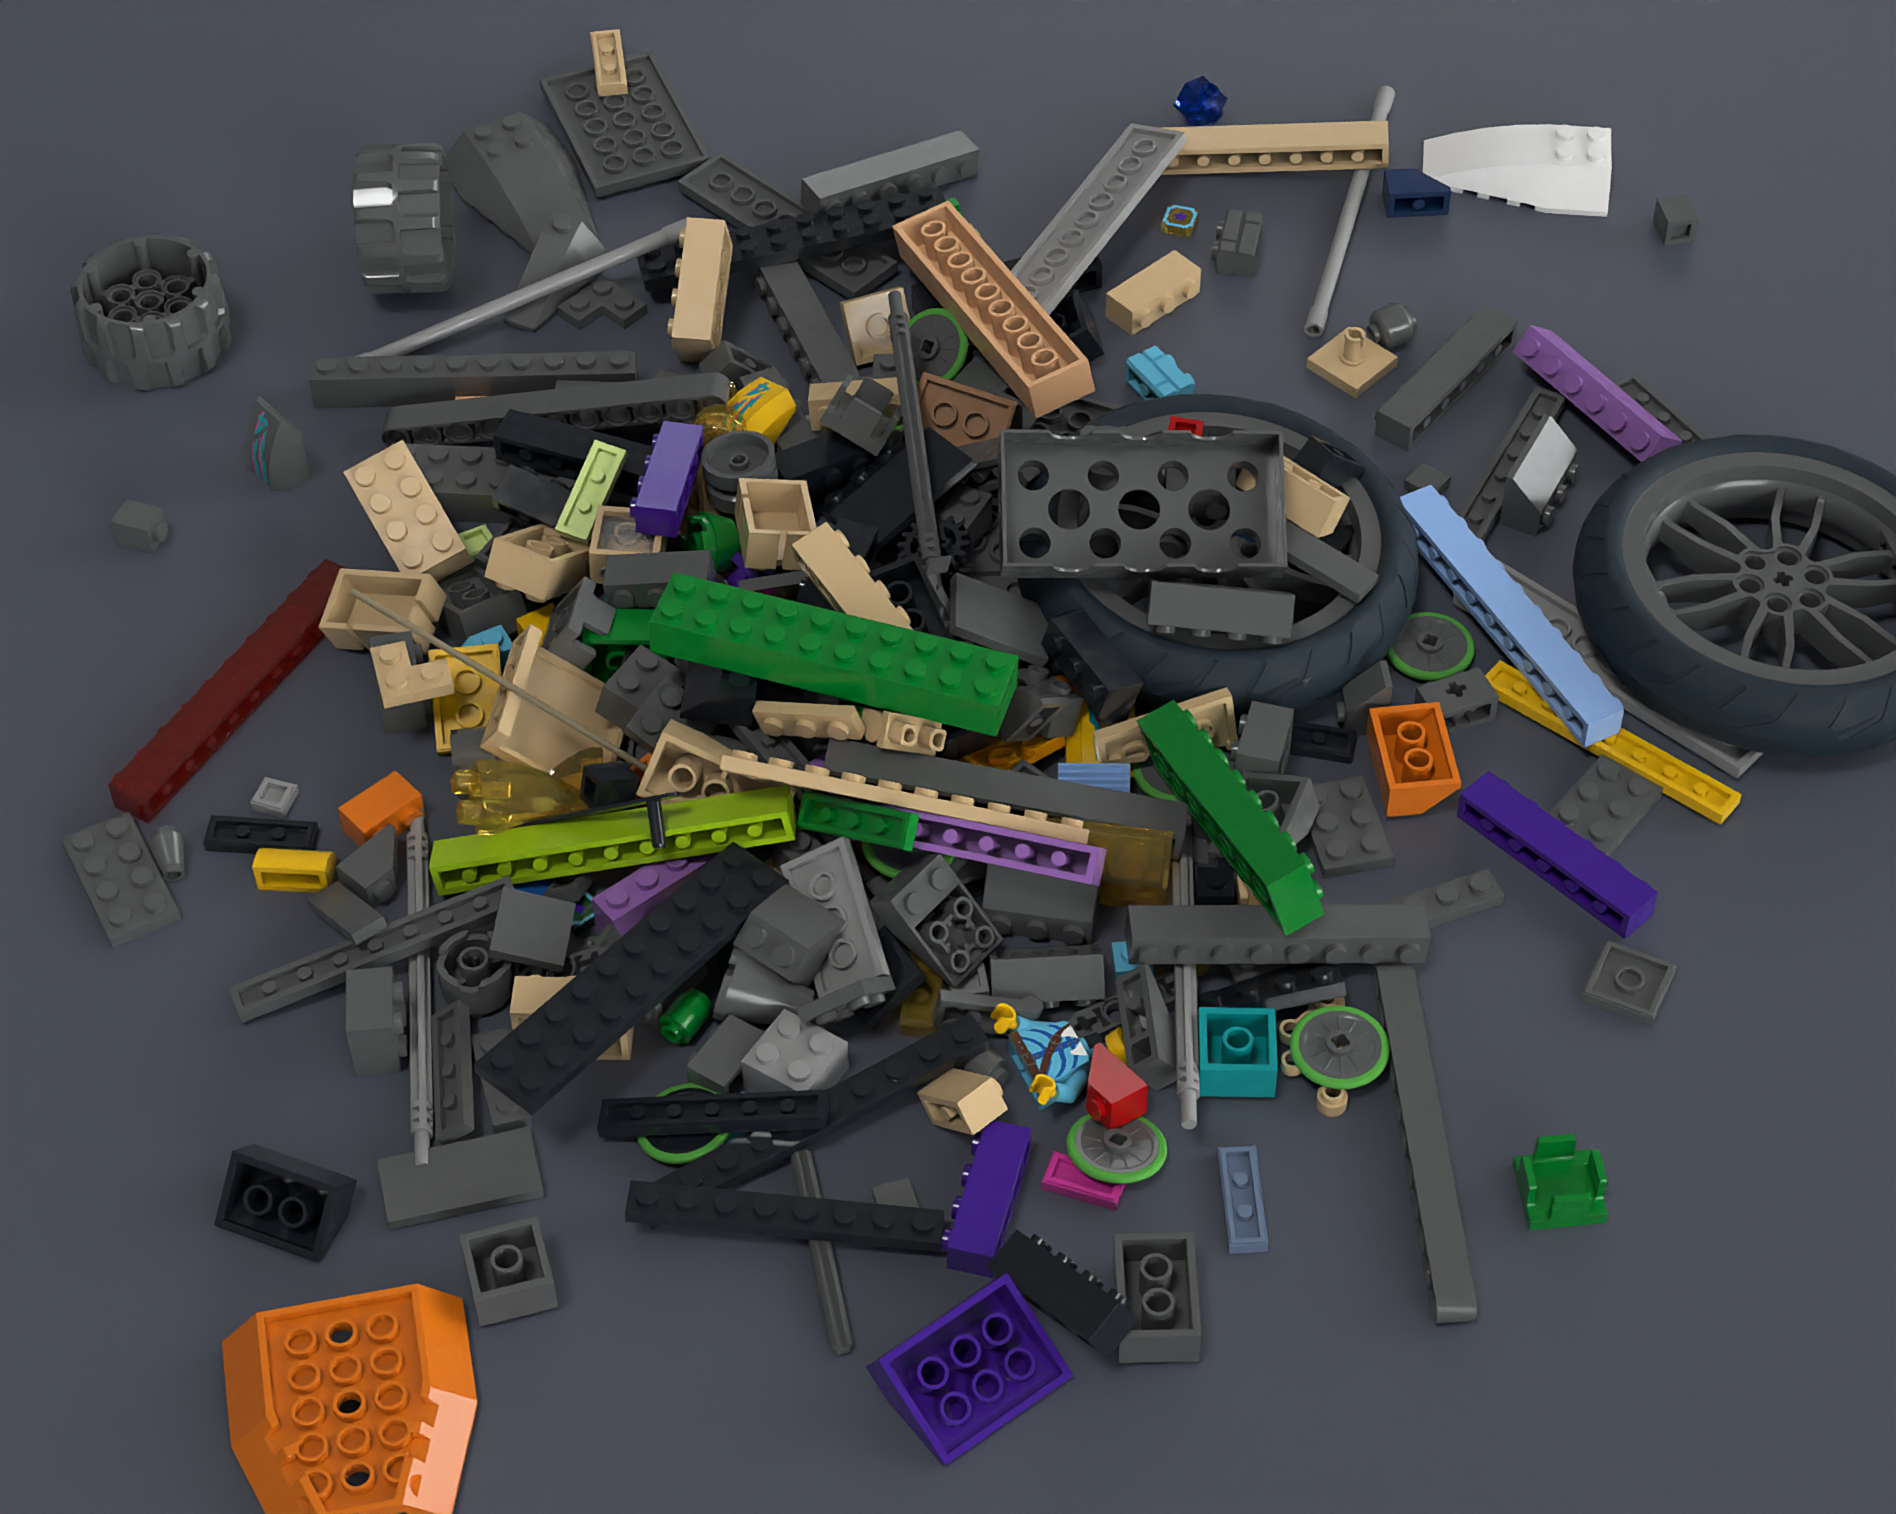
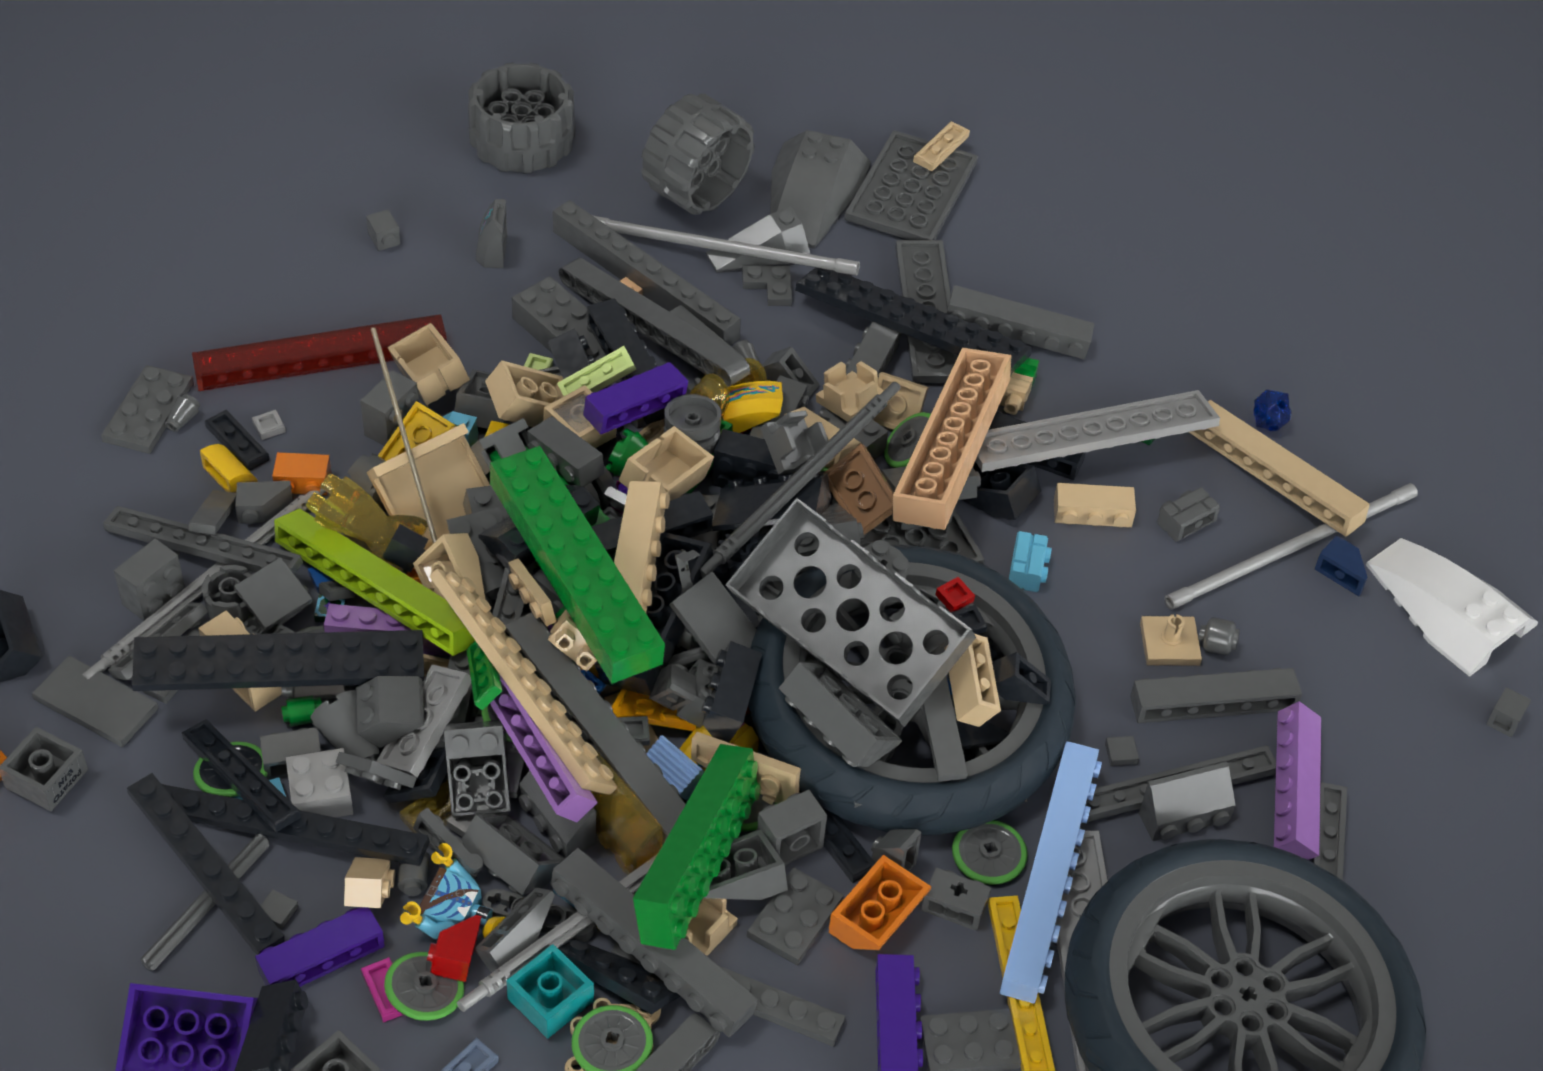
camera: 40 degrees right, 0 degrees up
(405, 683) = (376, 407): tan plate -> none
(407, 513) = (502, 319): tan brick -> none
(654, 812) = (389, 579): black piece -> none
(701, 288) = (812, 307): tan brick -> none
(836, 342) = (848, 393): none -> tan panel
(1179, 220) = (1172, 474): clear yellow tile -> none

